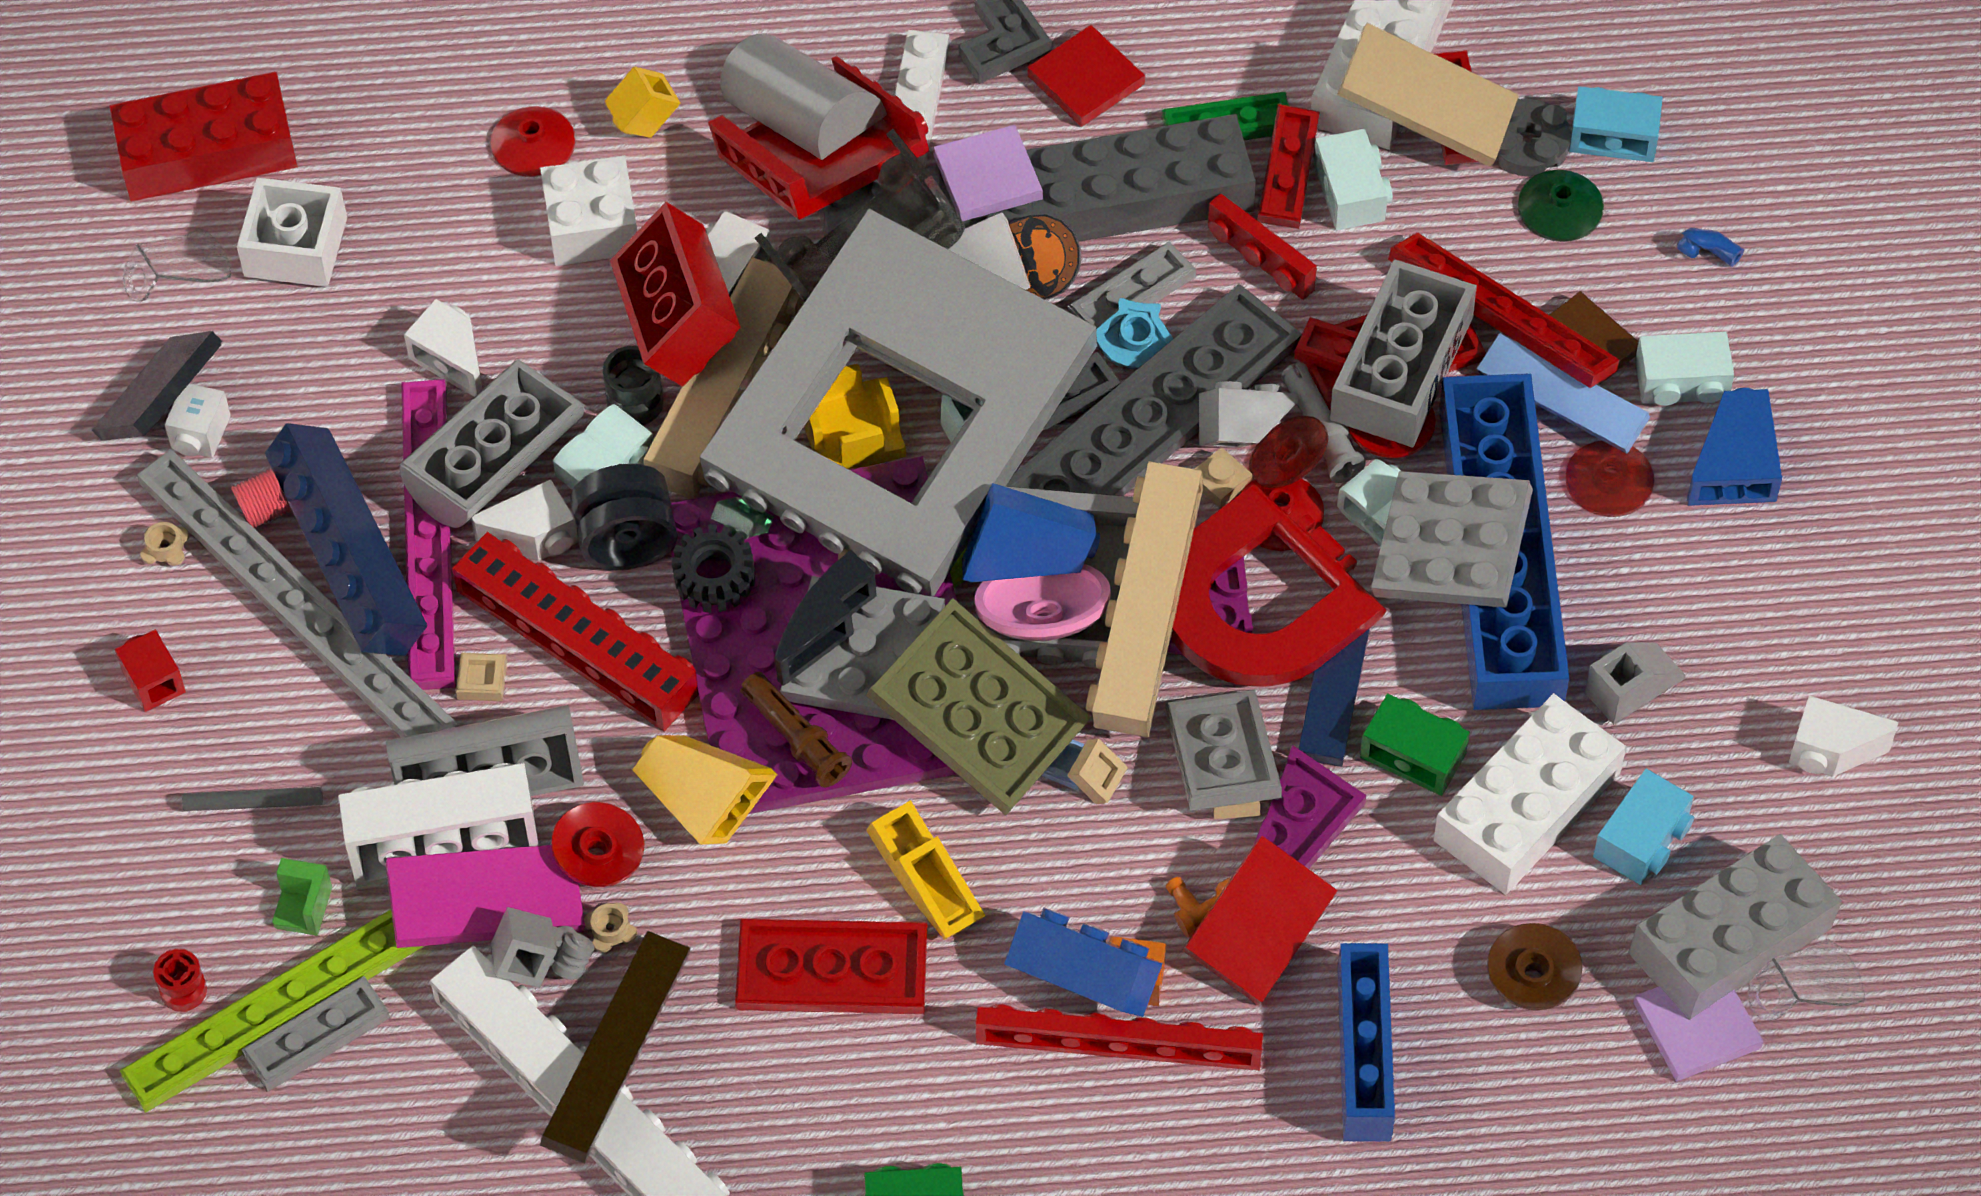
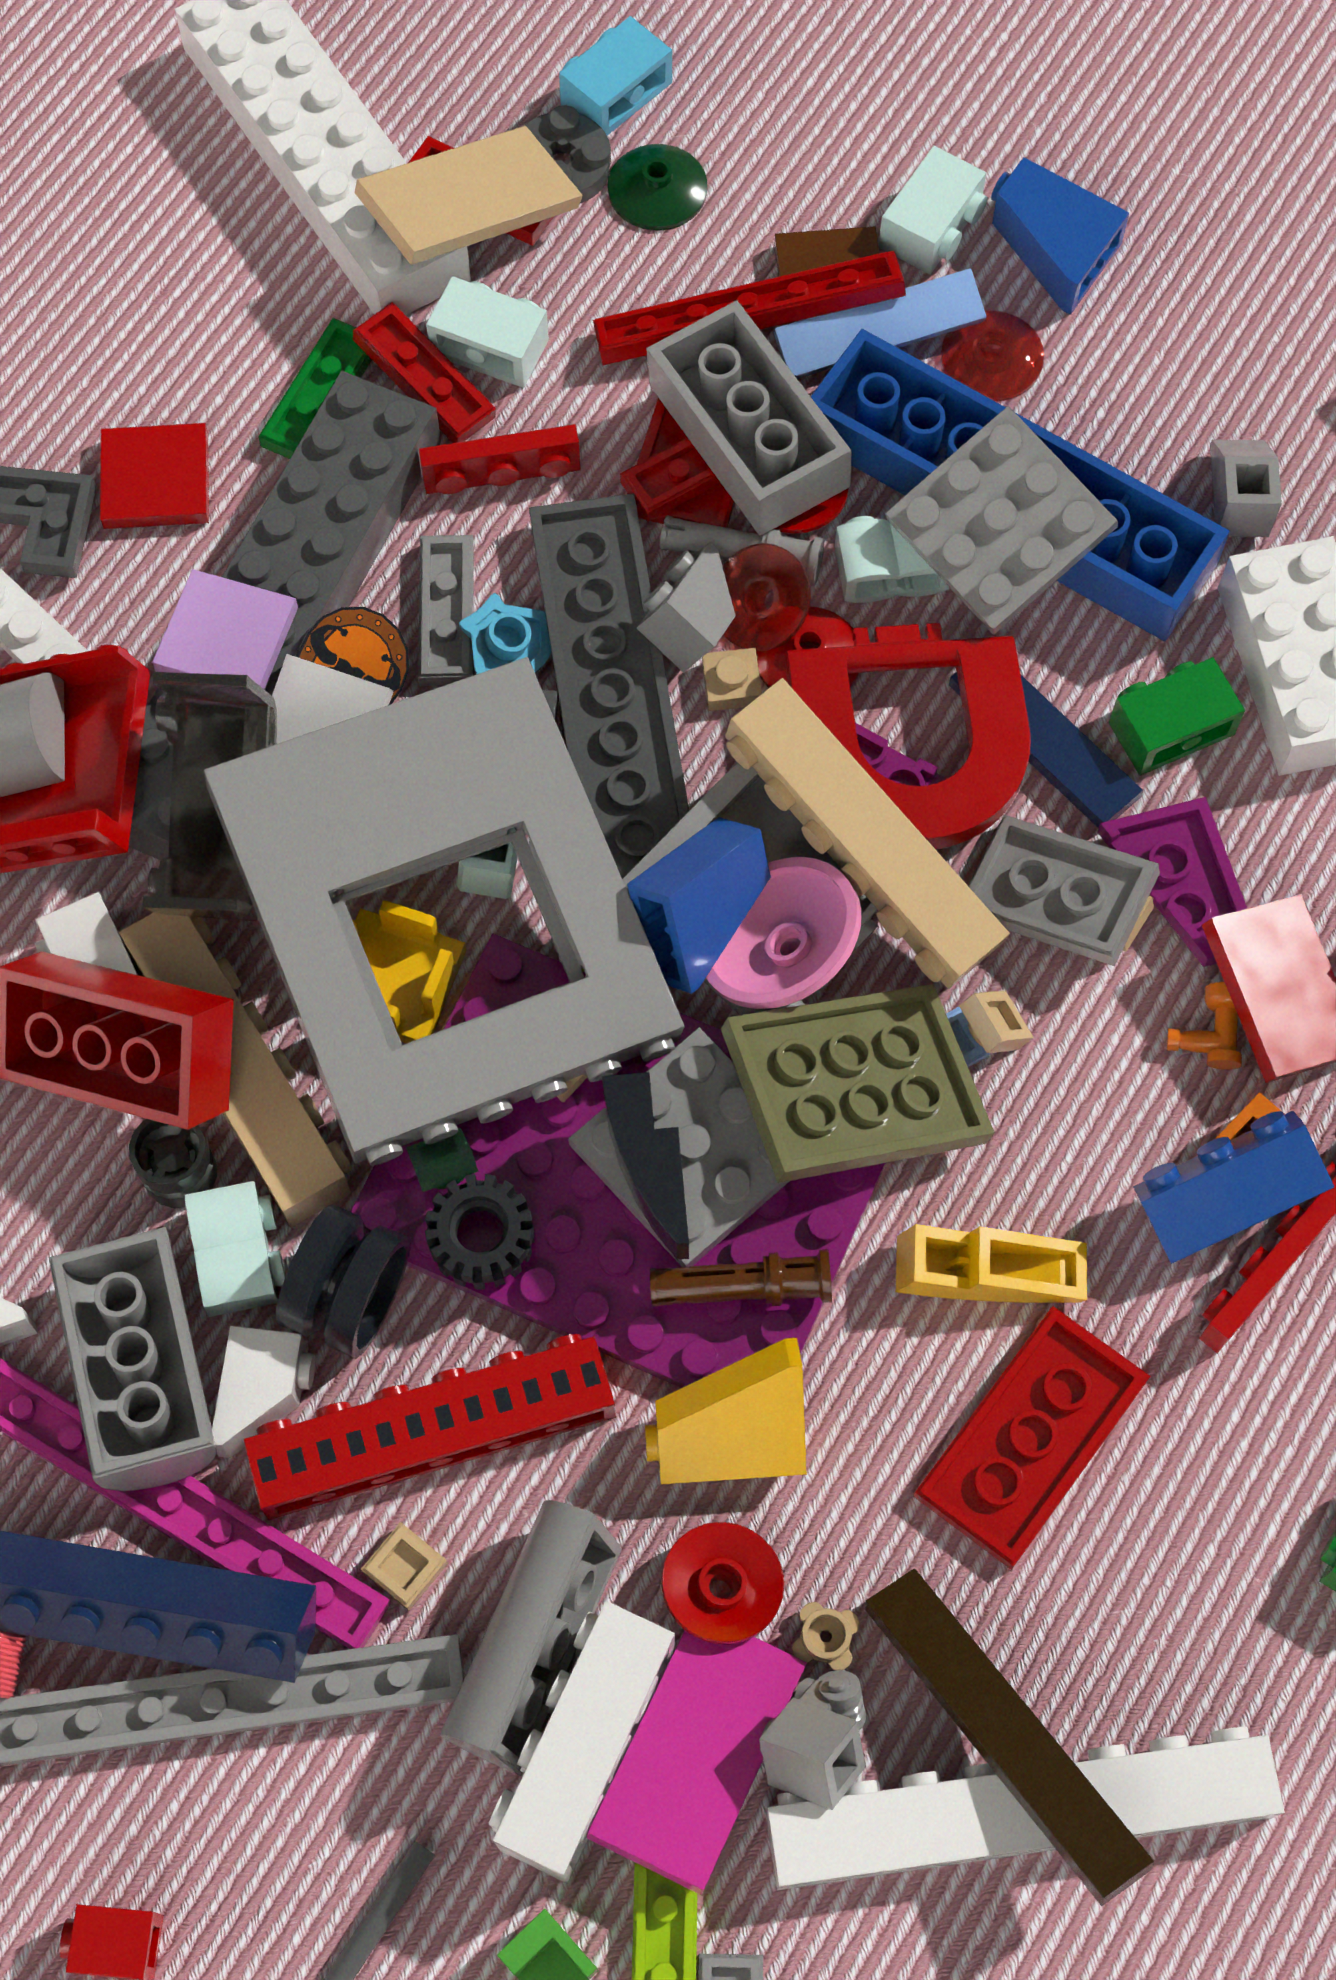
camera: 55 degrees left, 10 degrees up
(1711, 240) = (807, 95): blue arm -> none

